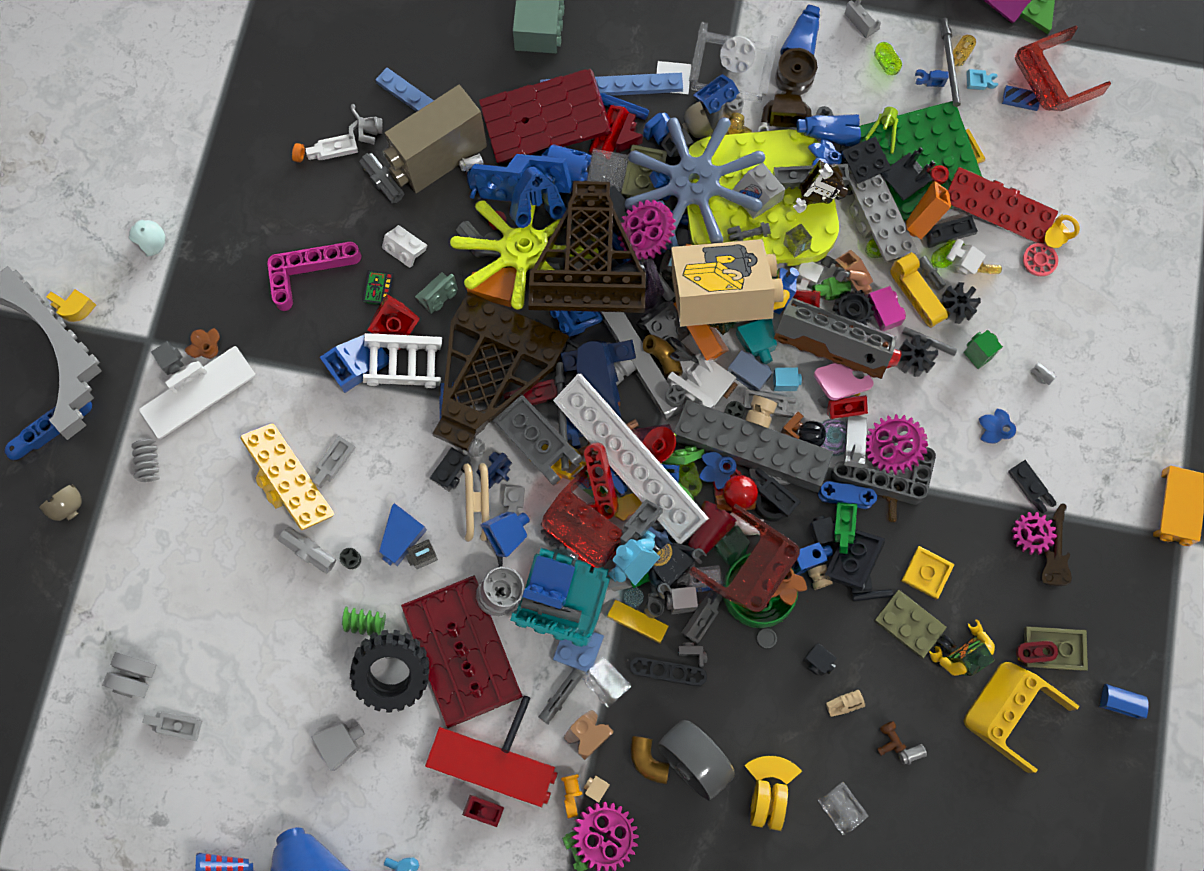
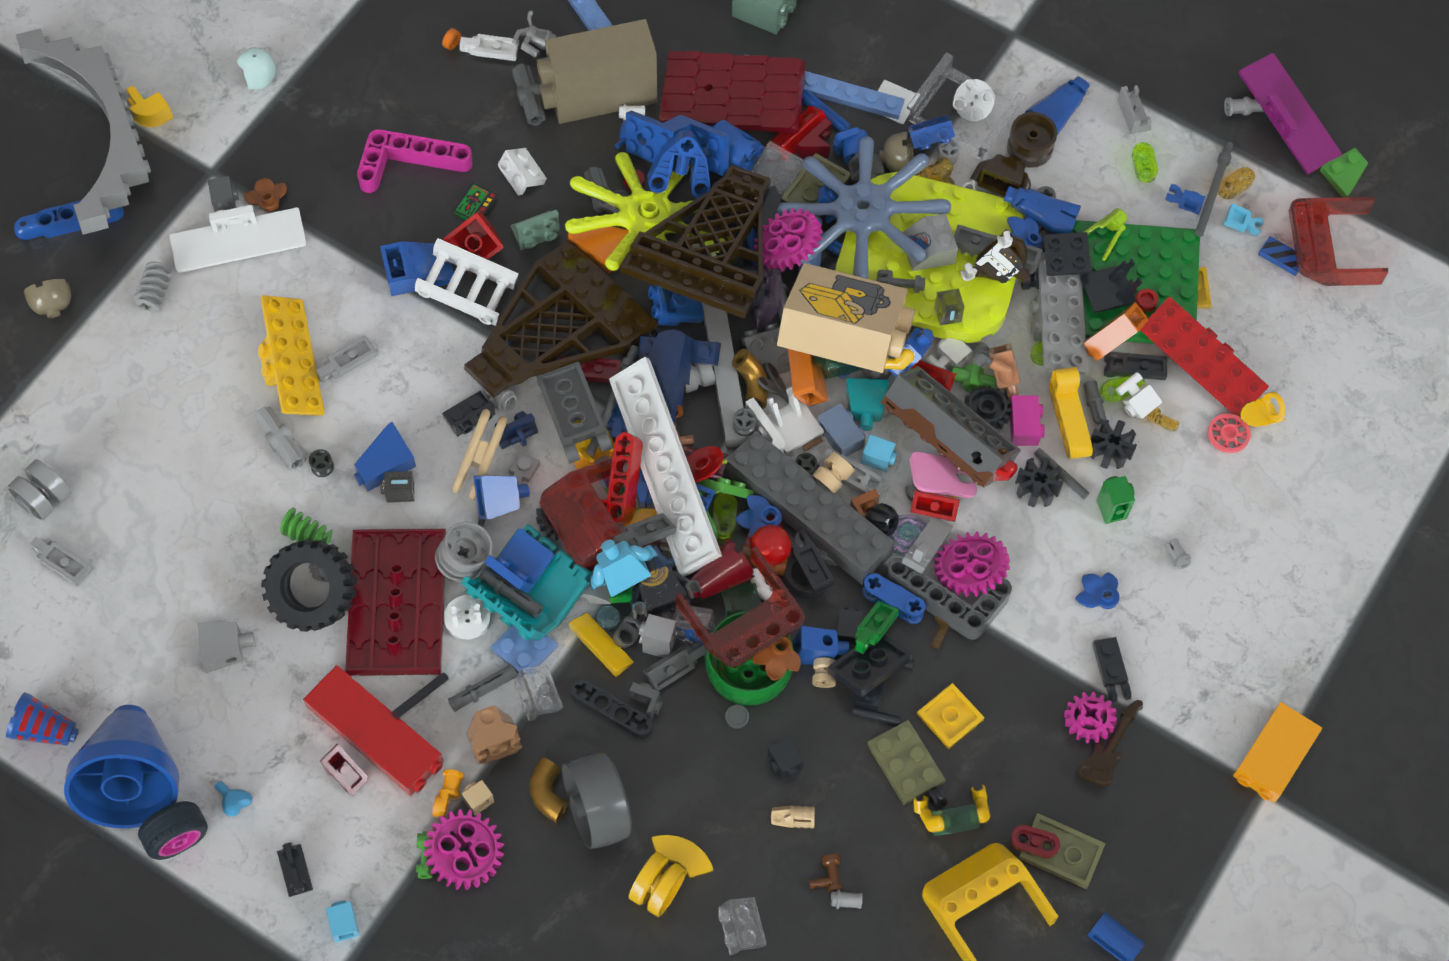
camera: 20 degrees right, 10 degrees down
(515, 646) = (456, 619): none -> white plate

